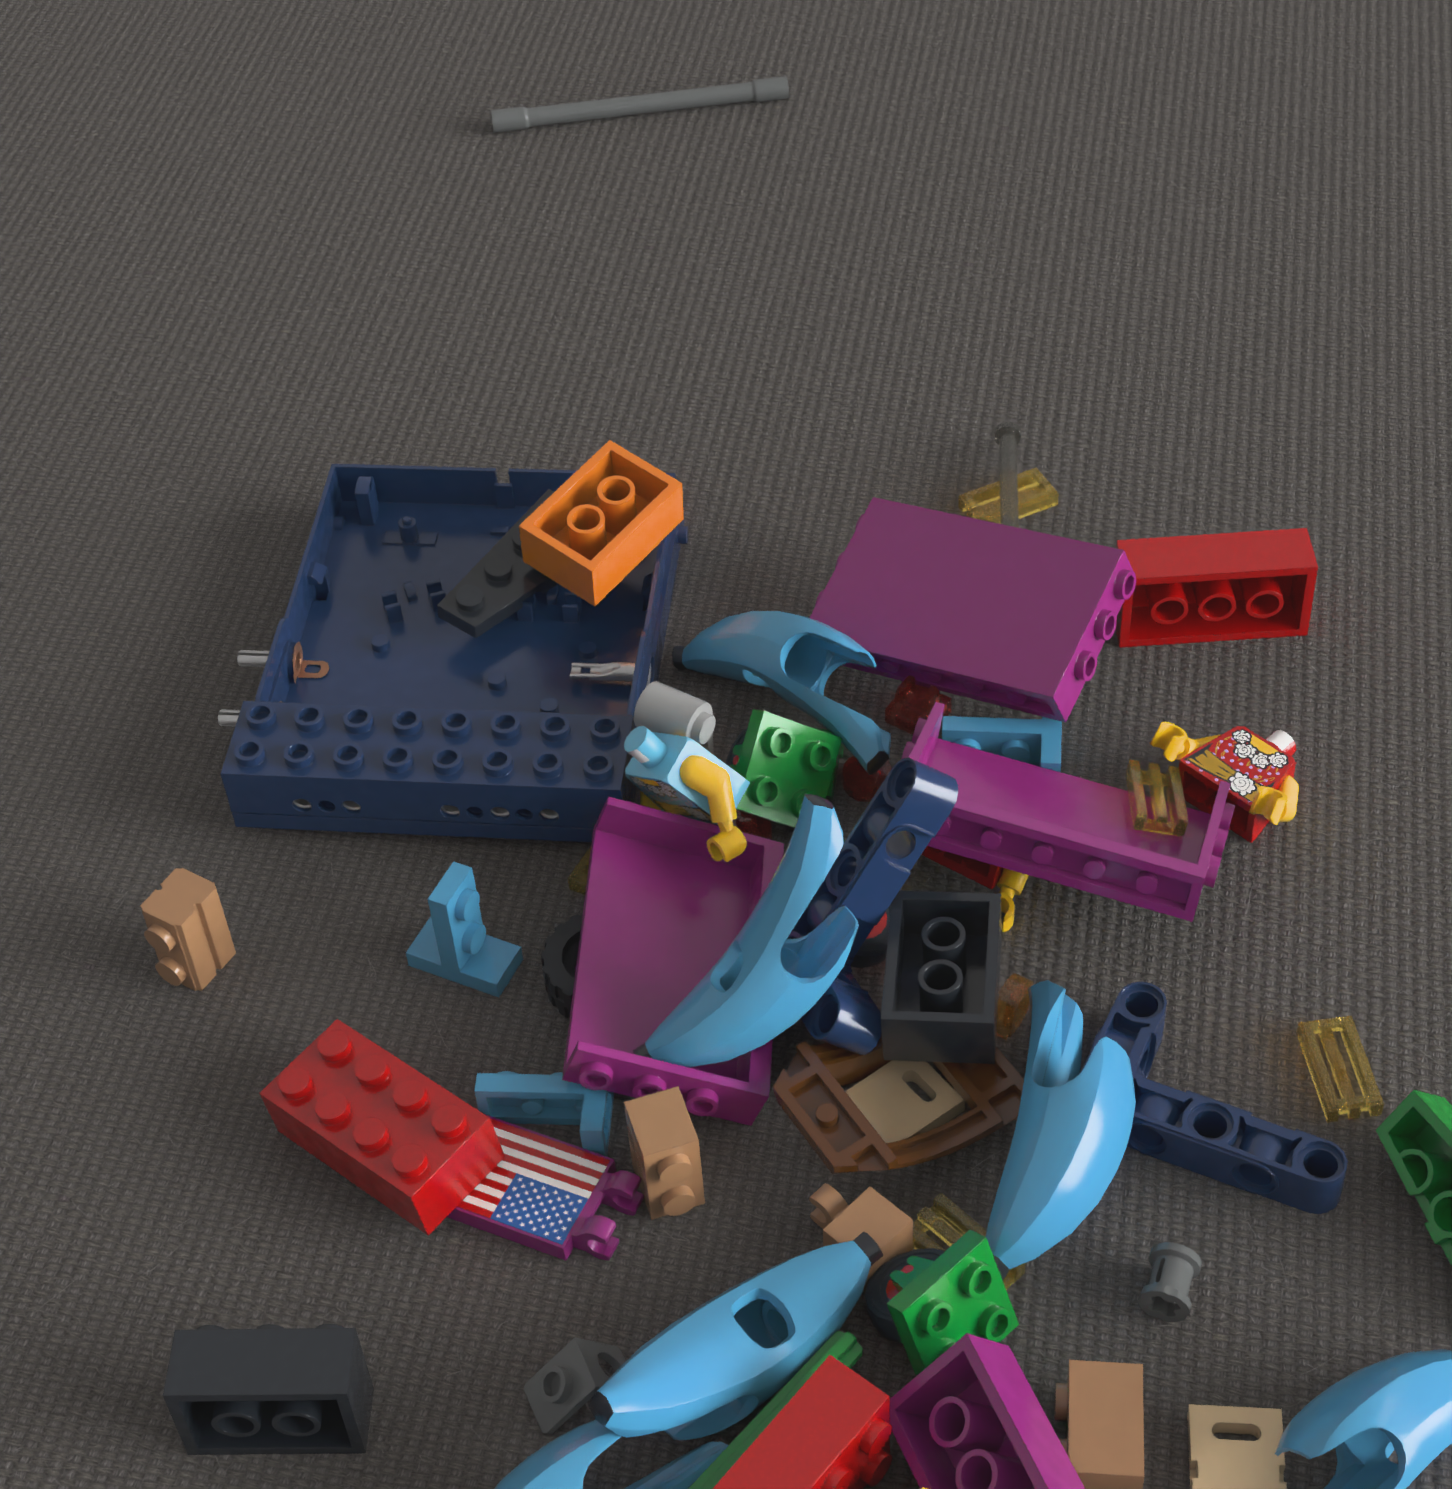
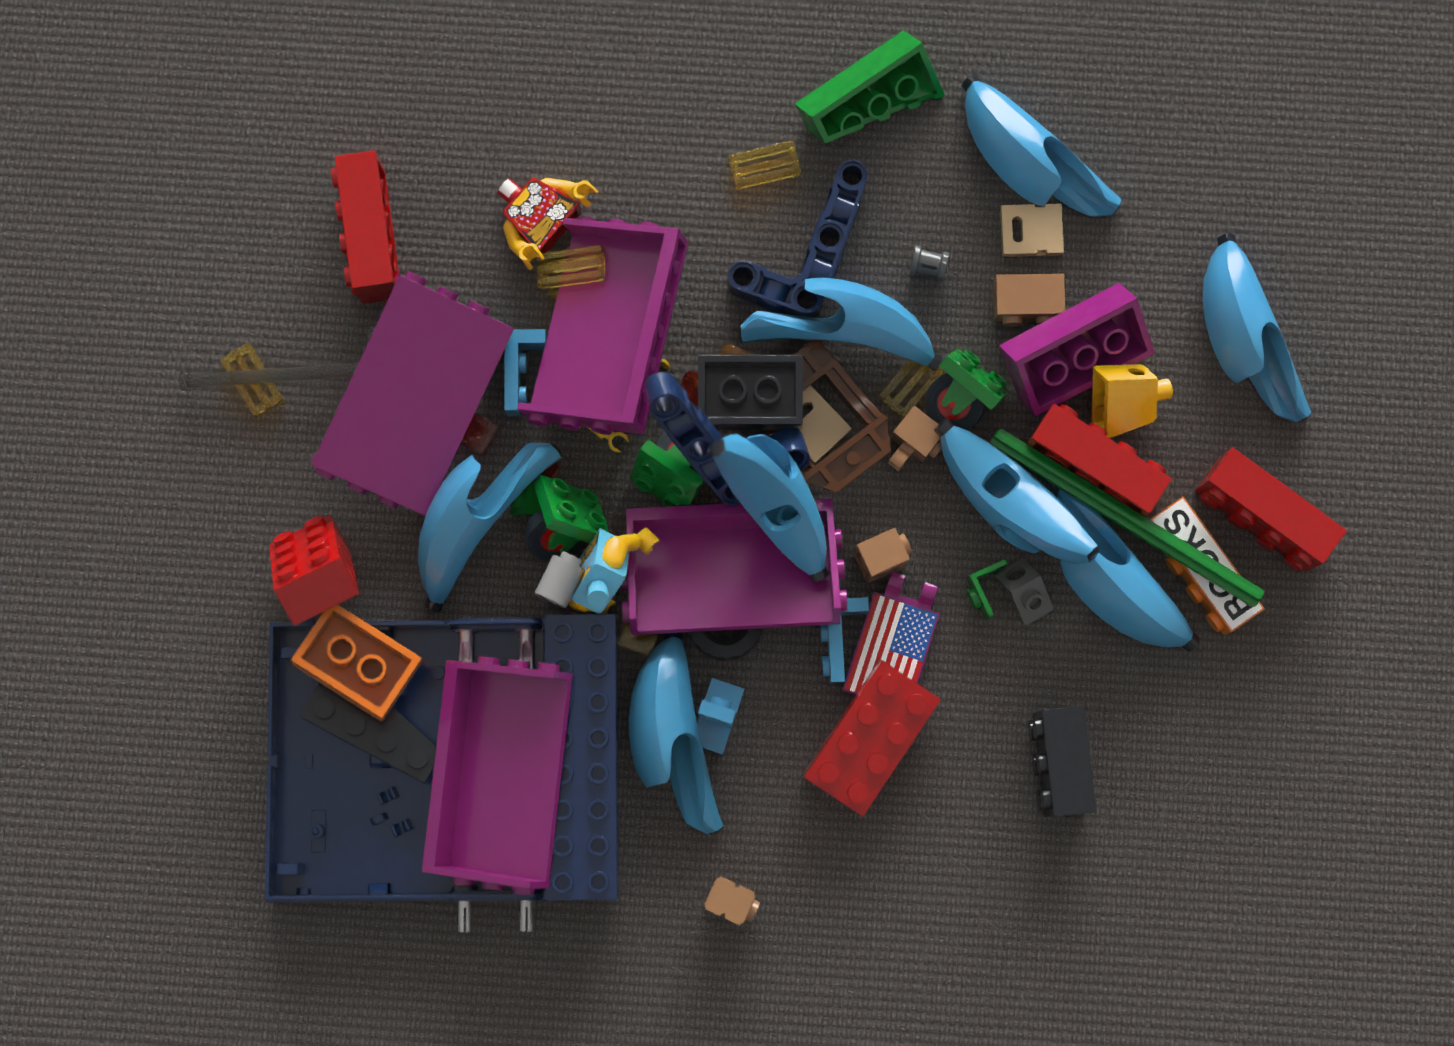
camera: 100 degrees left, 35 degrees up
(425, 662) = (497, 774): none -> magenta panel
(505, 870) = (667, 735): none -> dark azure piece
(585, 1306) = (976, 593): none -> green bracket
(735, 493) = (312, 569): none -> red brick

